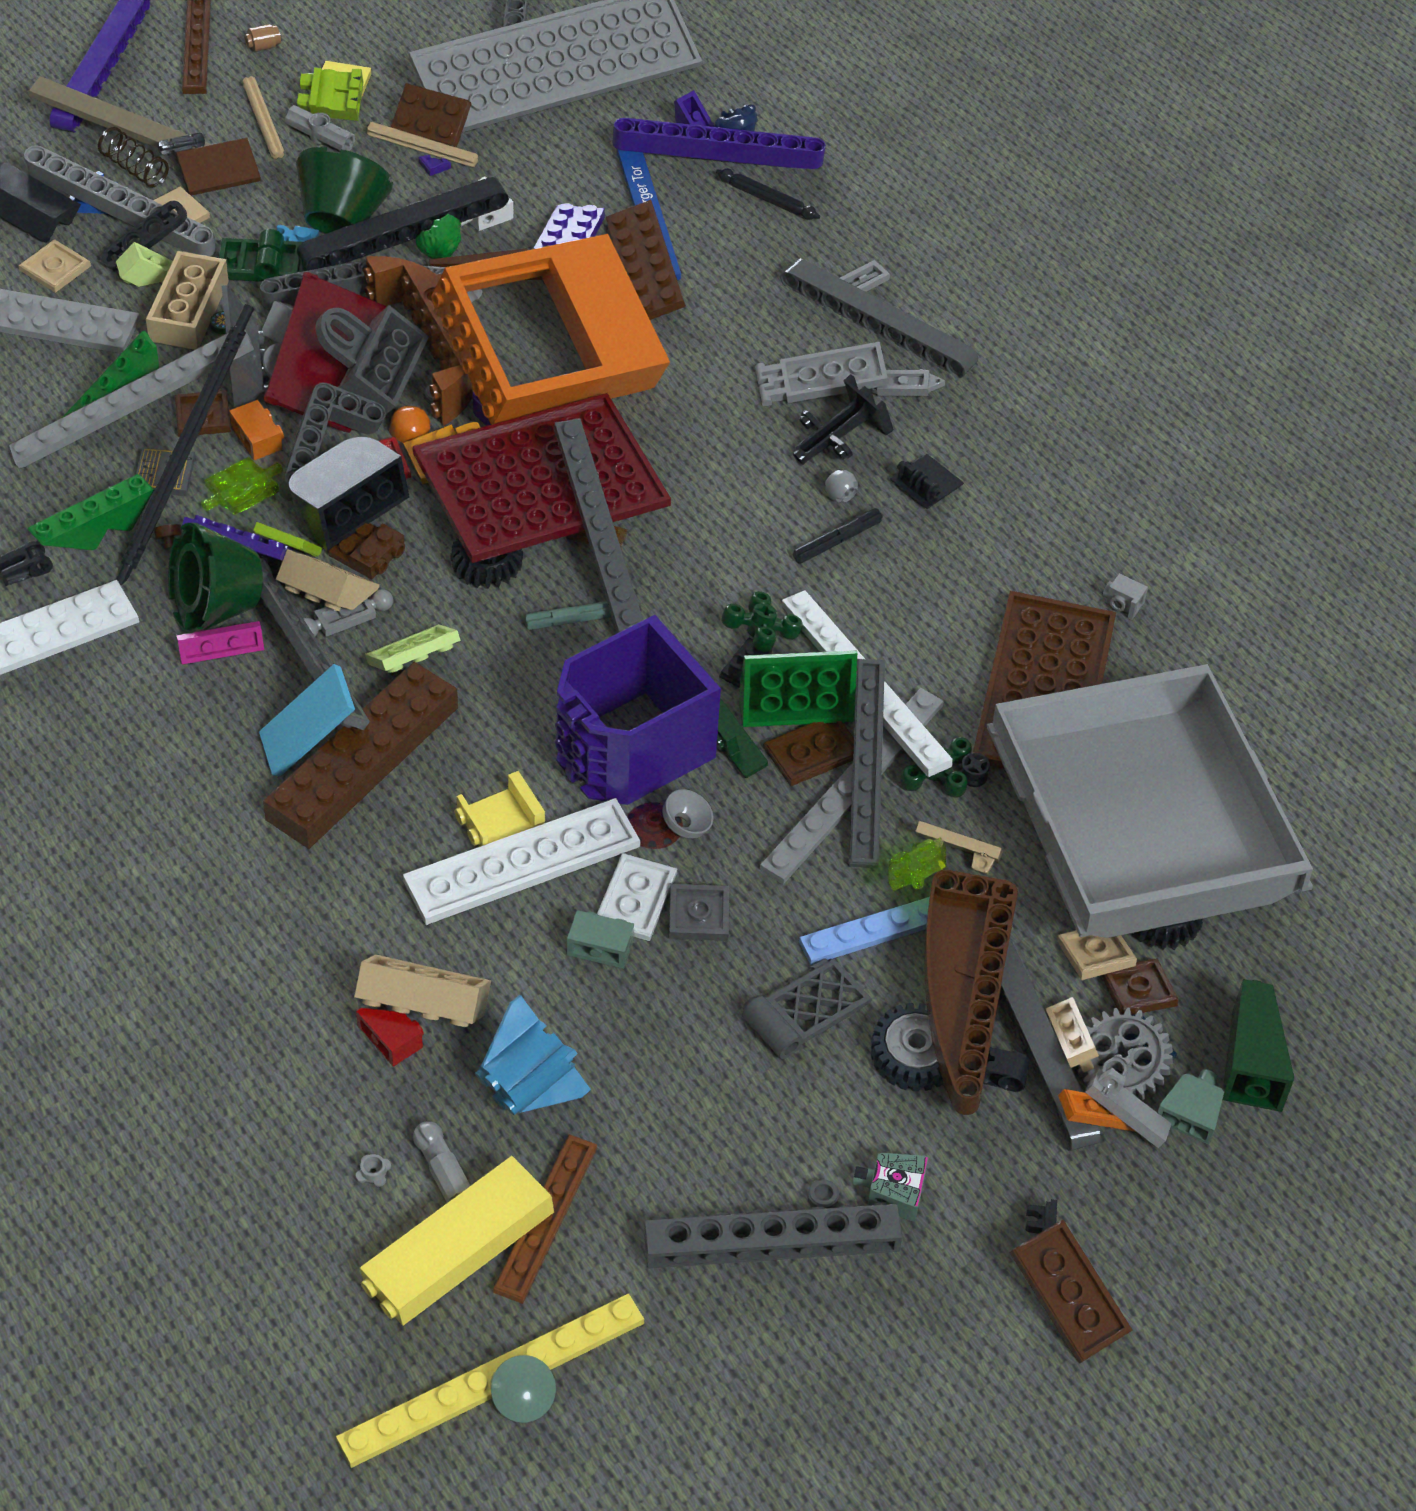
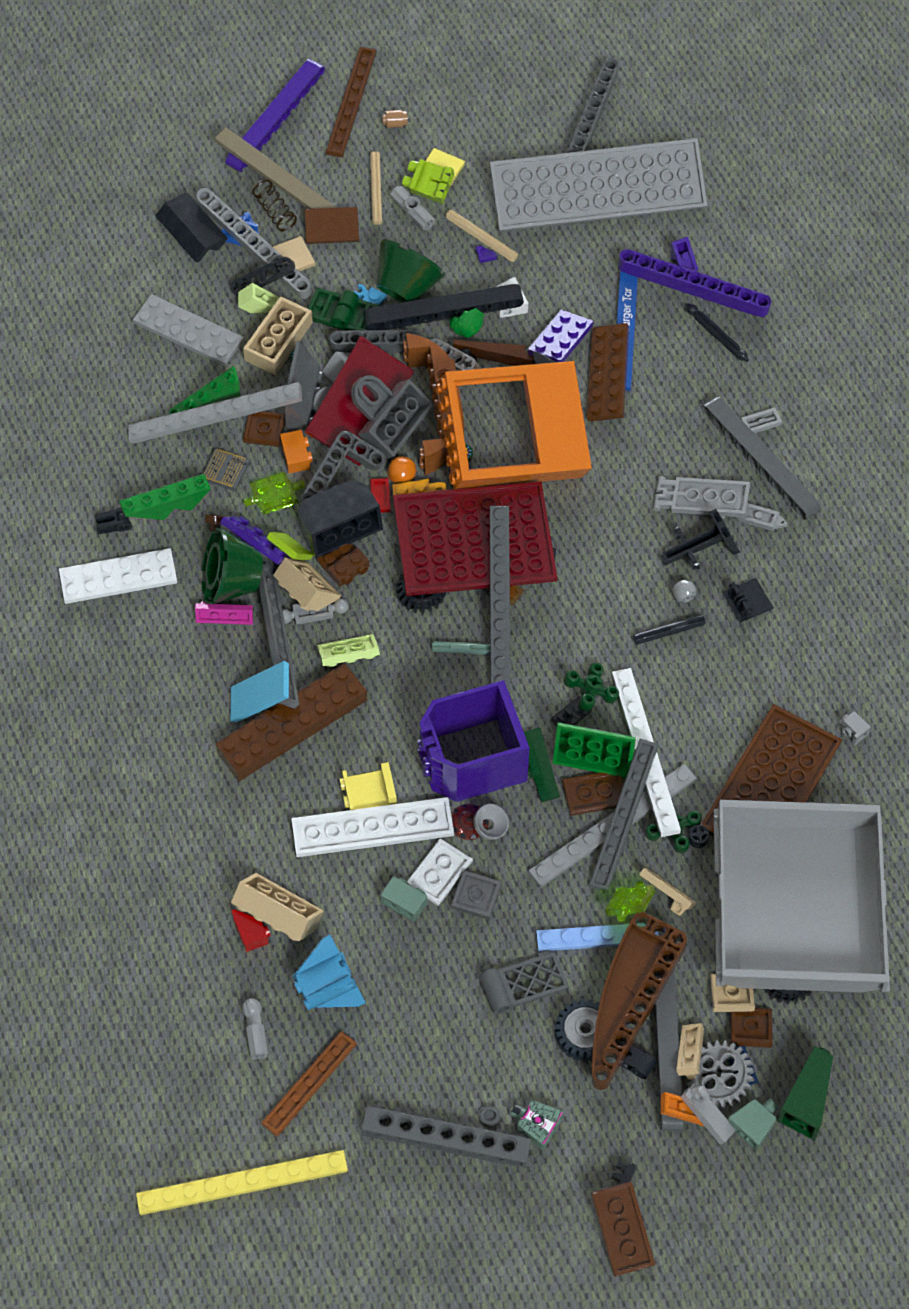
camera: 20 degrees right, 10 degrees up
(54, 265) = (198, 283): tan tile -> none
(181, 143) = (308, 202): black axle -> none
(184, 445) = (238, 461): black axle -> none
(373, 1162) = (210, 1015): light grey plate -> none
(431, 114) = (493, 215): reddish brown plate -> none
(456, 1241) = (246, 1085): light yellow brick -> none
(523, 1388) = (257, 1195): sand green dish -> none
(740, 118) = (714, 266): dark blue hair -> none

